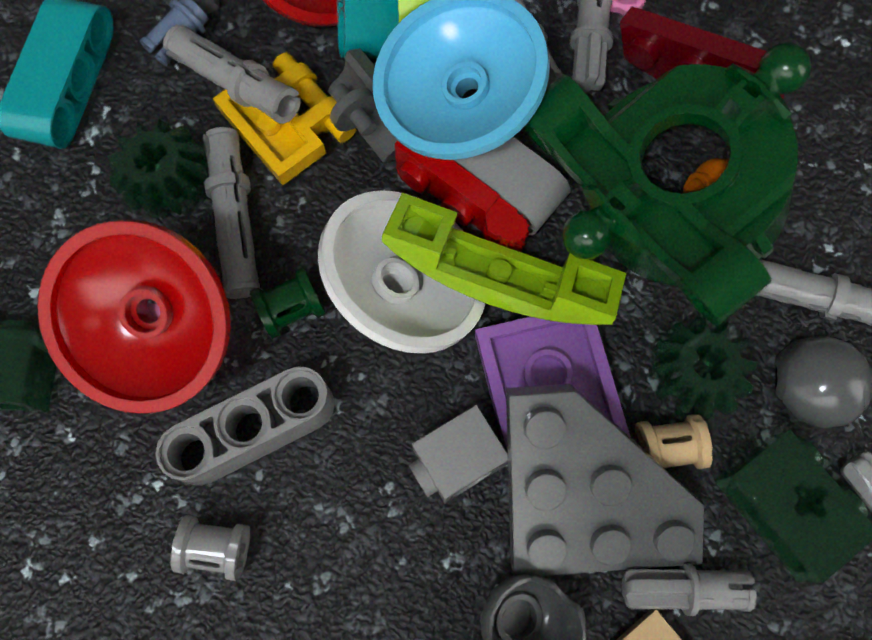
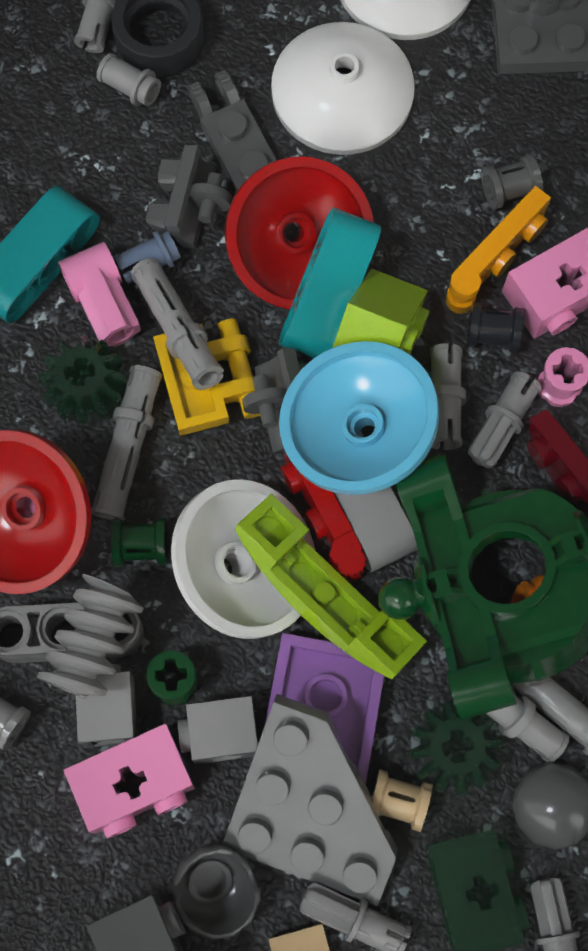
camera: 20 degrees right, 0 degrees up
(133, 74) = (96, 285): none -> bright pink piece
(279, 417) = (91, 639): none -> light grey piece
(326, 485) = (110, 717): none -> light grey brick
(351, 566) = (99, 777): none -> bright pink brick
(392, 407) = (159, 669): none -> dark green bush
(769, 317) = (531, 728): none -> light grey pin

